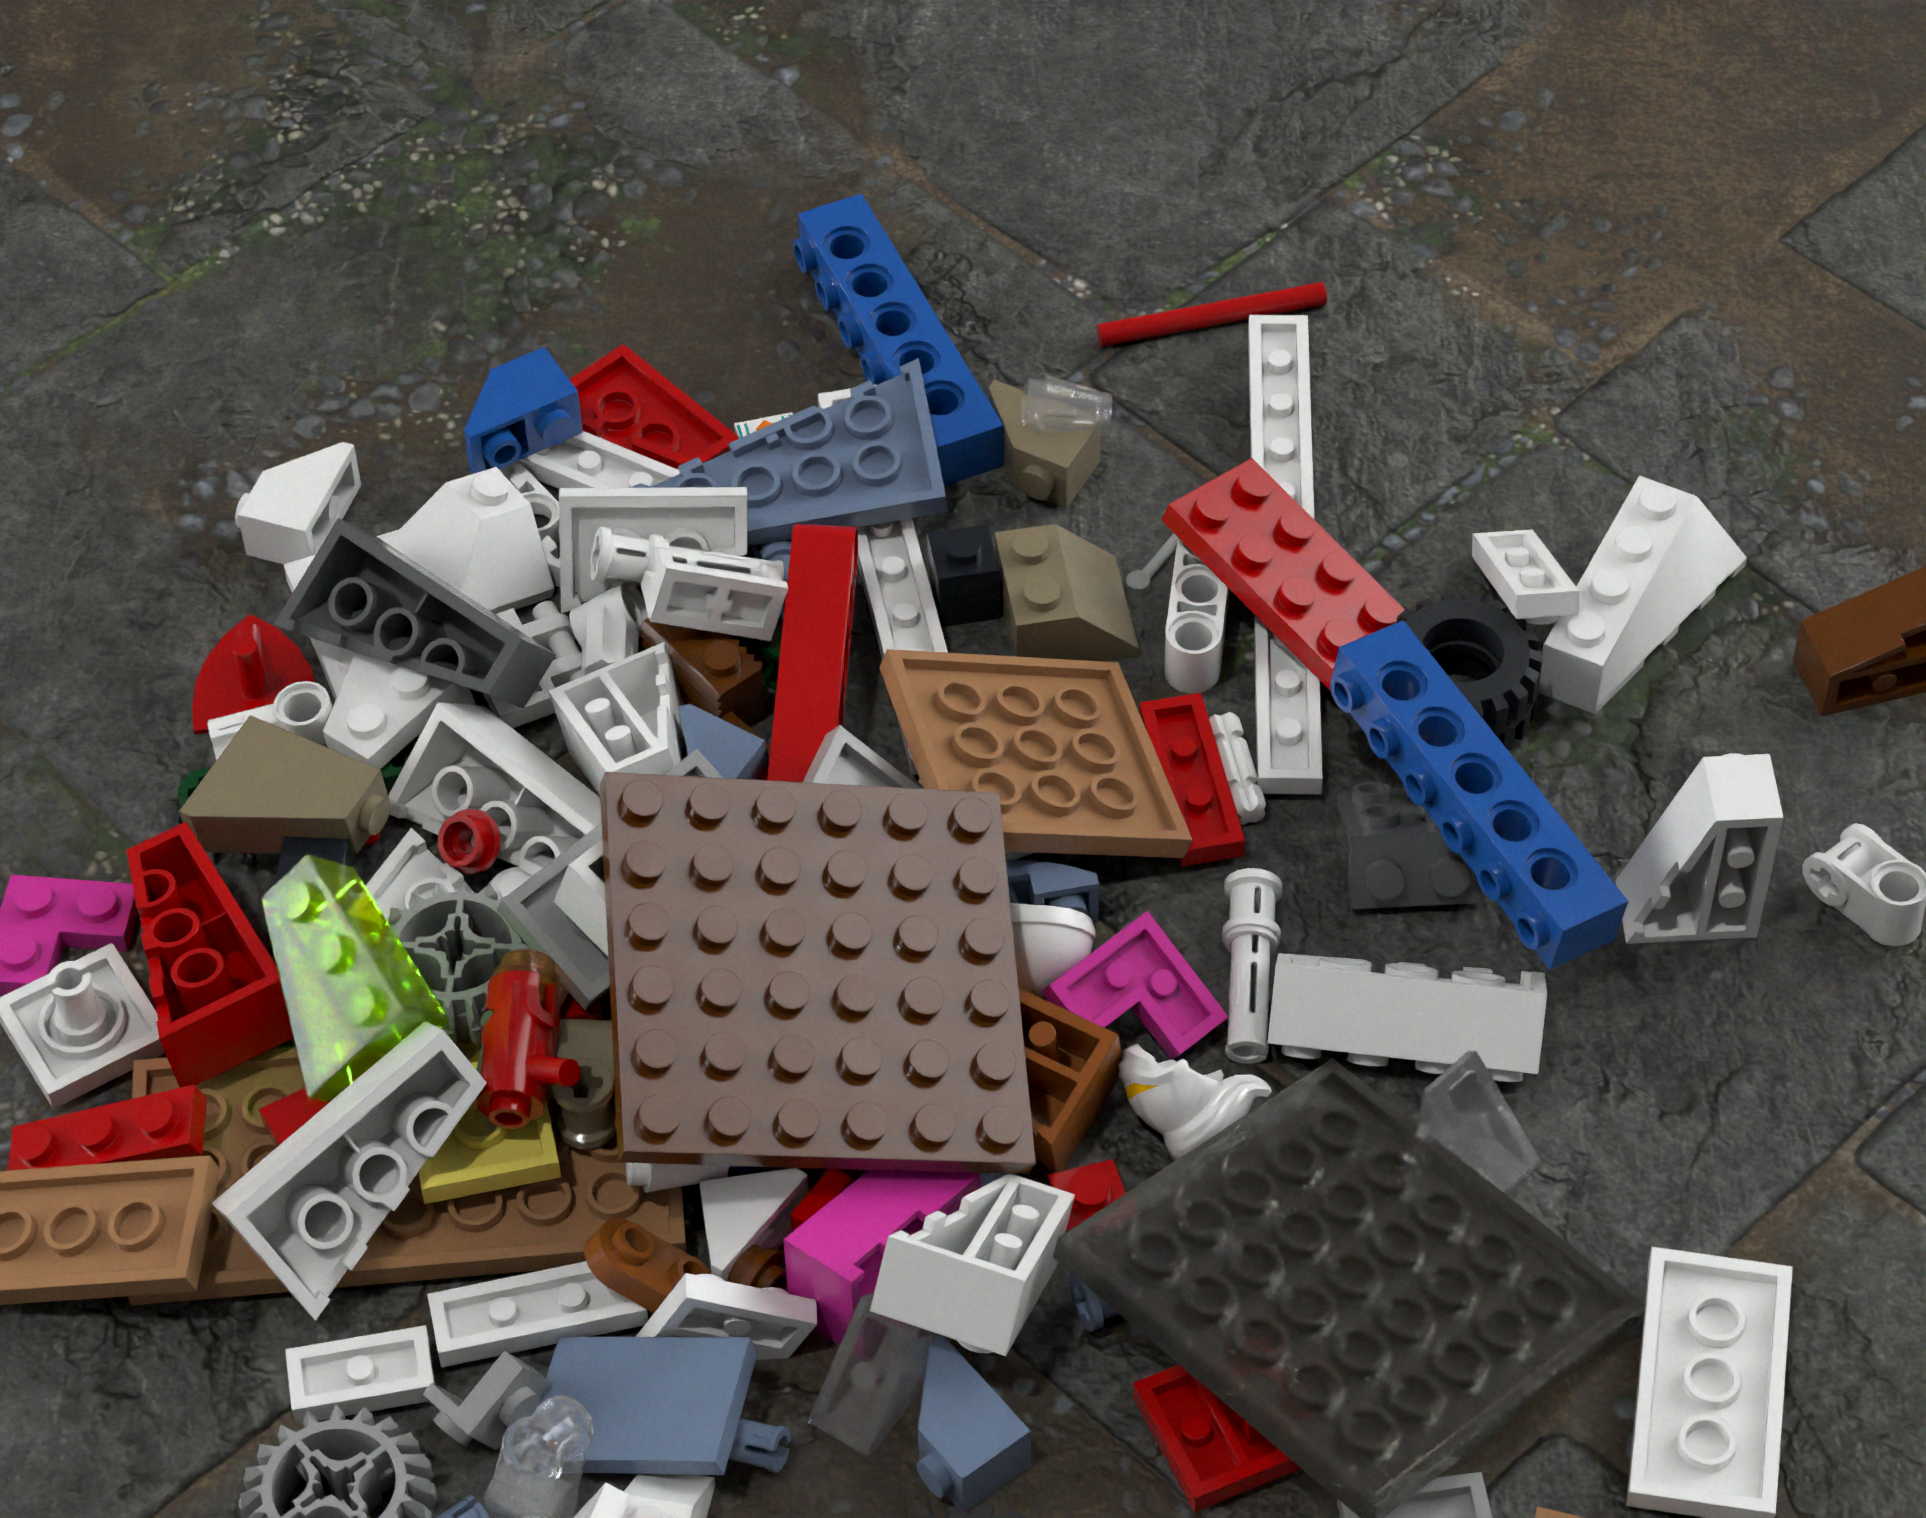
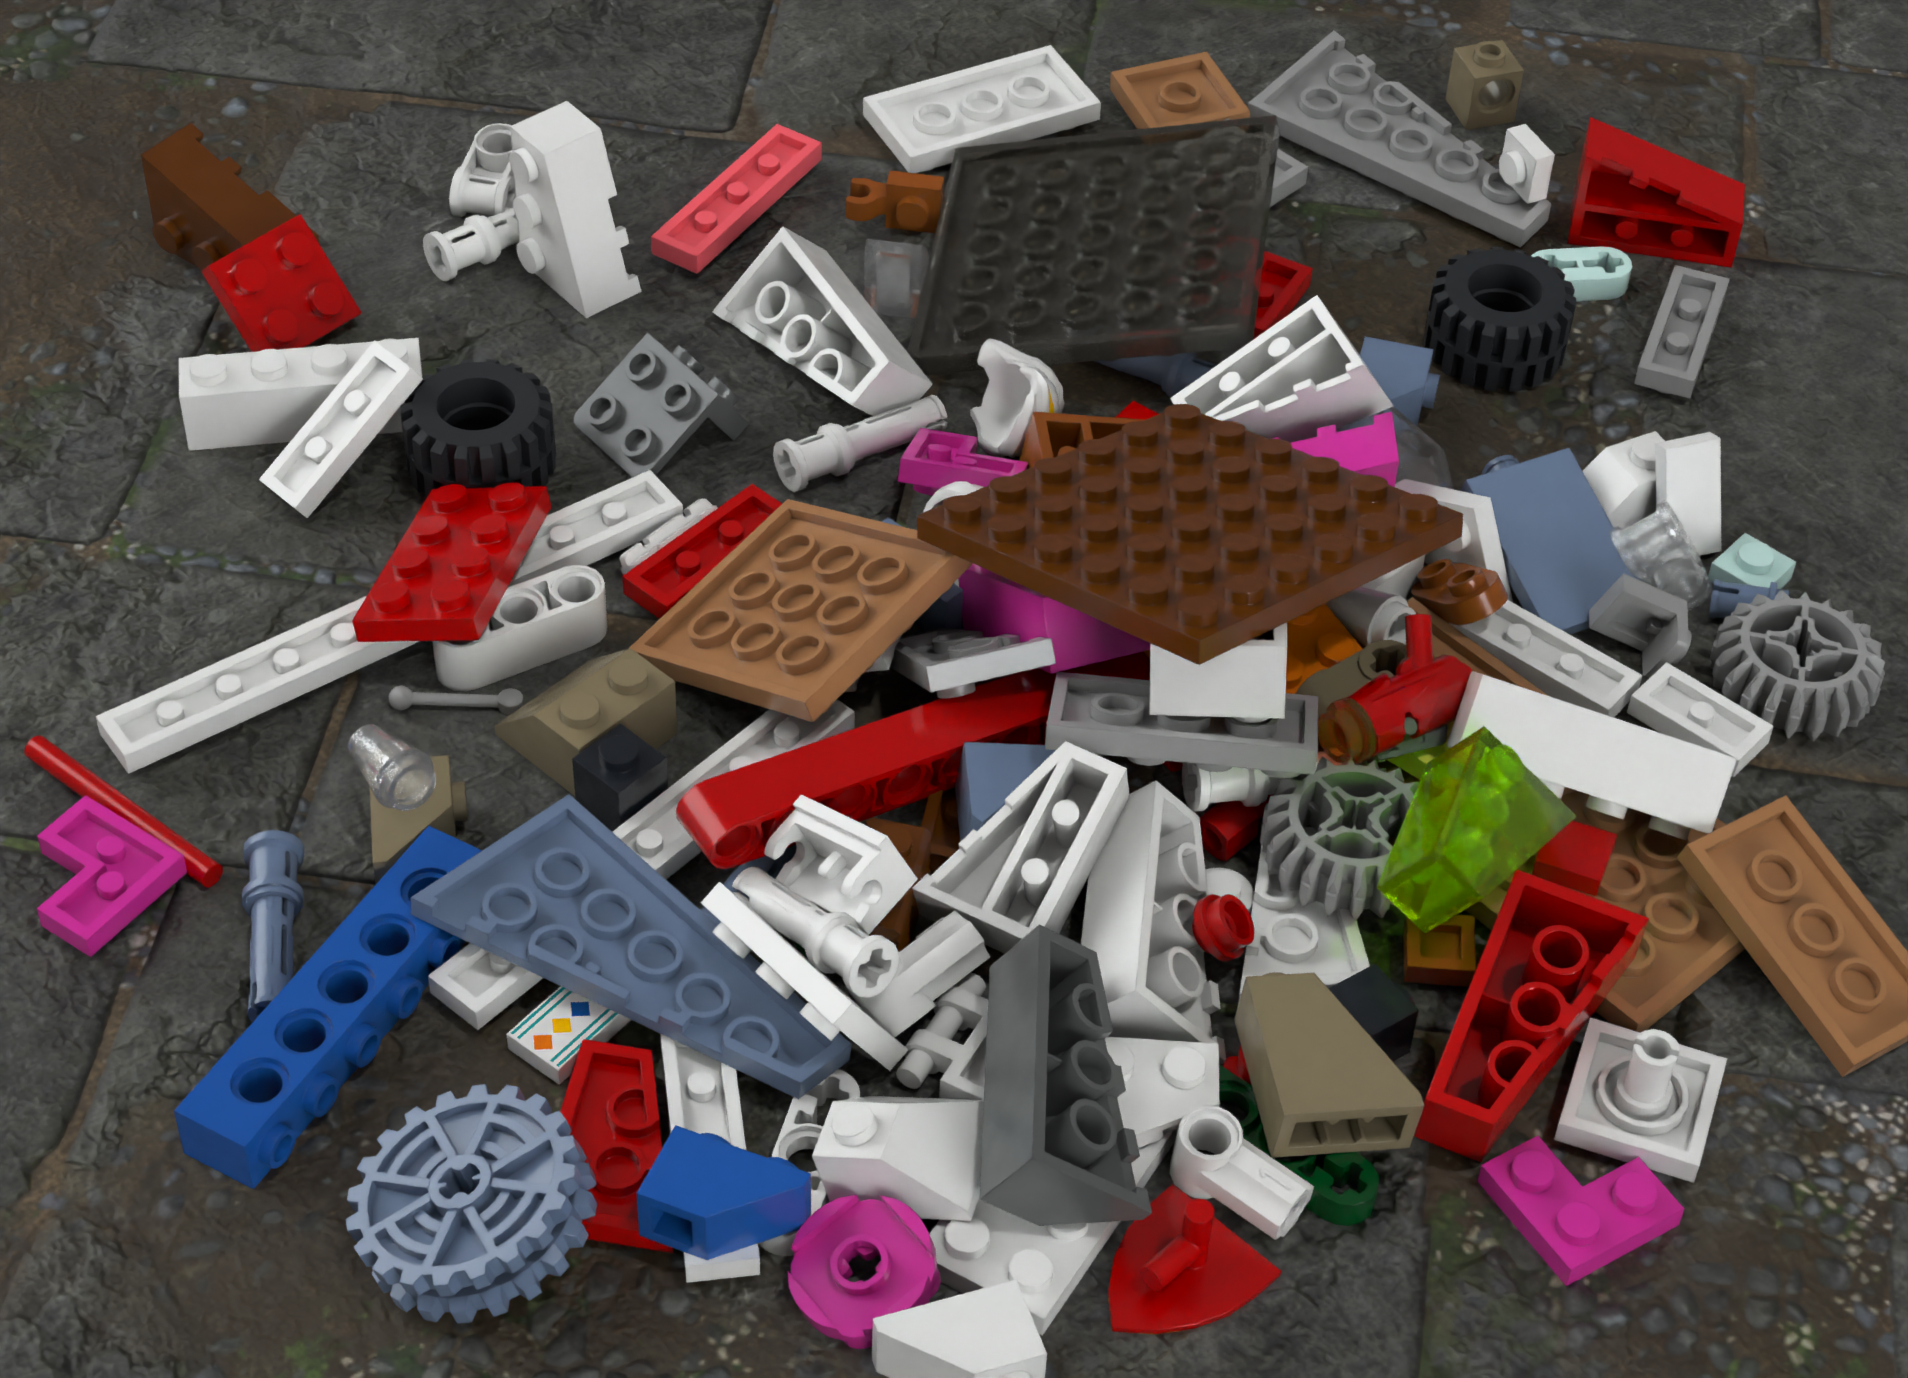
camera: 130 degrees left, 5 degrees down
(125, 1131) = (1724, 982): red plate -> none
(401, 481) = (865, 1228): none -> dark pink plate
(648, 307) = (472, 1203): none -> sand blue piece
(1036, 339) = (272, 902): none -> sand blue pin
(1143, 282) = (116, 873): none -> dark pink plate
(1477, 795) = (630, 324): blue brick -> none
(1582, 1206) = (906, 199): none -> dark orange plate
(1702, 1075) = (736, 198): none -> coral plate
(1768, 625) = (281, 289): none -> red plate
(1790, 922) = (474, 242): none -> white pin

